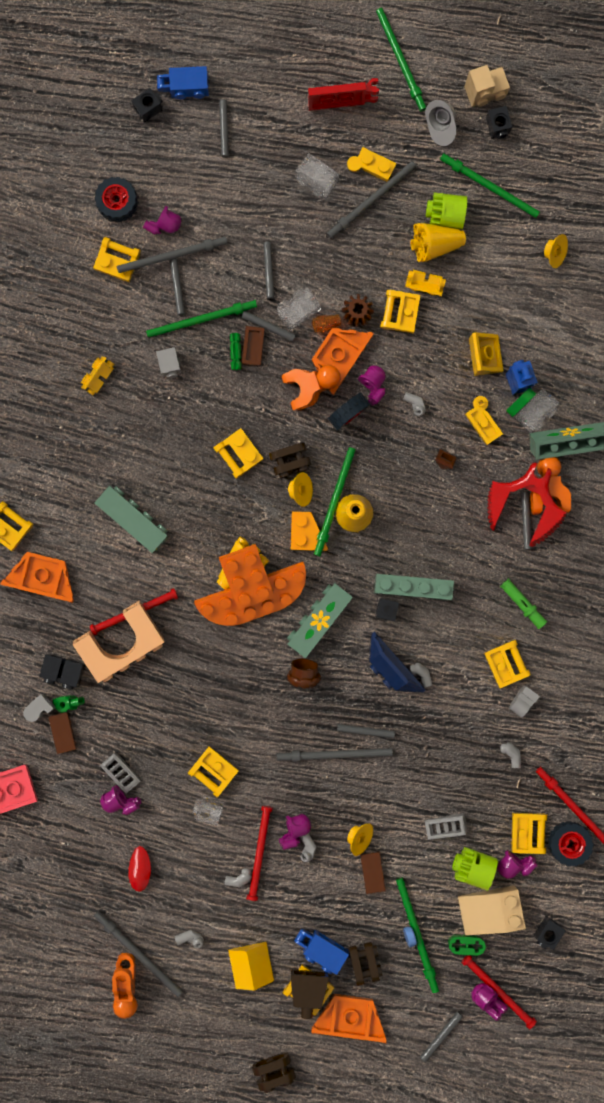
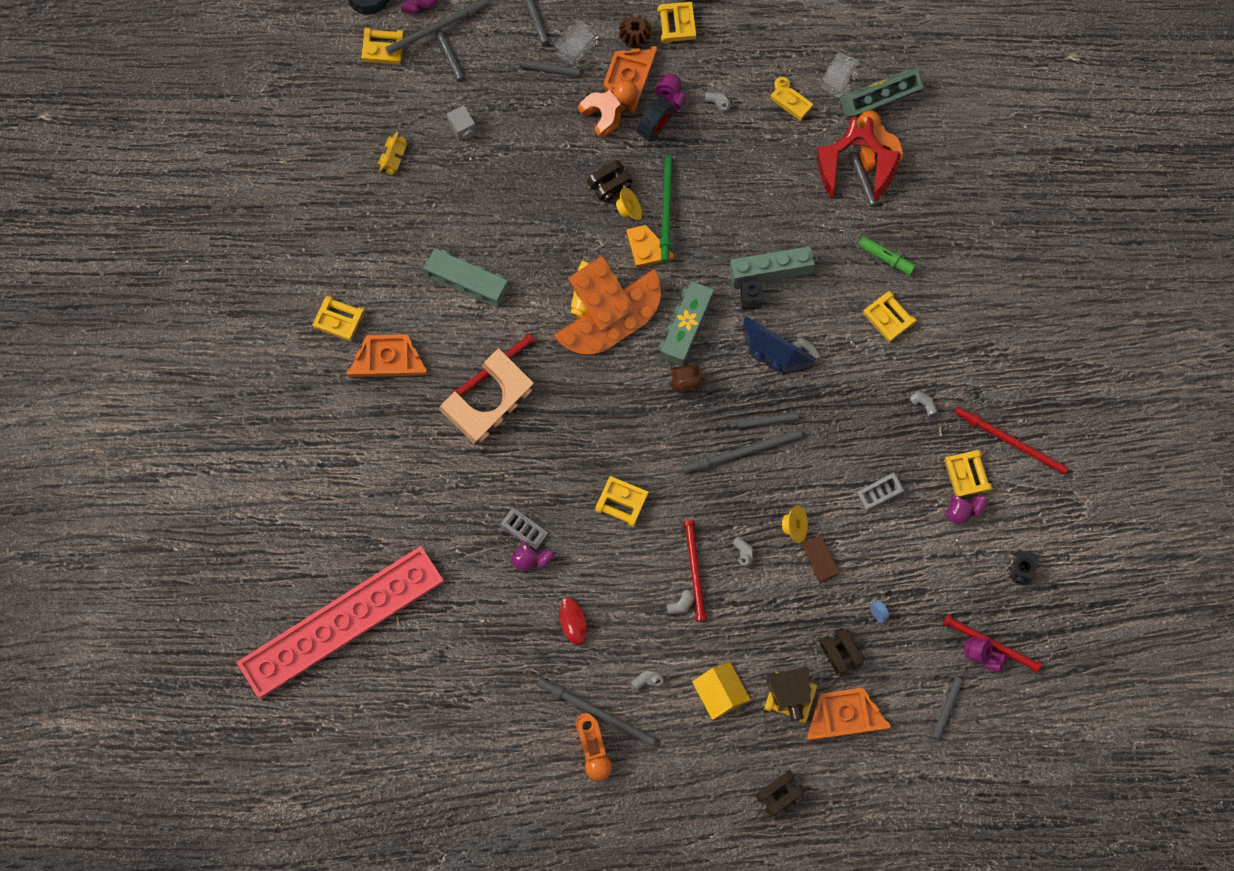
camera: 15 degrees left, 15 degrees down
(35, 709) = (418, 486): light grey leg -> none
(62, 671) = (434, 444): black piece -> none
(62, 732) = (451, 506): reddish brown tile -> none
(71, 702) = (451, 471): green piece -> none
(208, 810) = (629, 535): clear brick -> none
(235, 350) = (525, 98): green axle -> none
(237, 308) = (515, 60): green bar -> none
(243, 448) = (560, 186): yellow plate -> none
(253, 346) = (541, 89): reddish brown tile -> none
(297, 827) = (725, 532): magenta piece -> none
(322, 951) = (792, 650): blue brick -> none
(325, 322) = (606, 50): clear orange cone -> none
(349, 520) = (689, 213): yellow cone -> none
(429, 971) = (911, 643): green bar -> none
(445, 460) = (764, 144): reddish brown slope -> none
(466, 950) = (941, 600): green beam -> none
(475, 868) = (924, 520): lime gear -> none
(485, 353) = (771, 38): yellow slope -> none
(492, 911) = (957, 562): tan slope -> none
(521, 377) = (814, 47): blue brick -> none
(521, 402) = (821, 69): green beam -> none
(523, 701) = (918, 345): light grey leg -> none
(560, 838) = (1014, 484): black wheel -> none

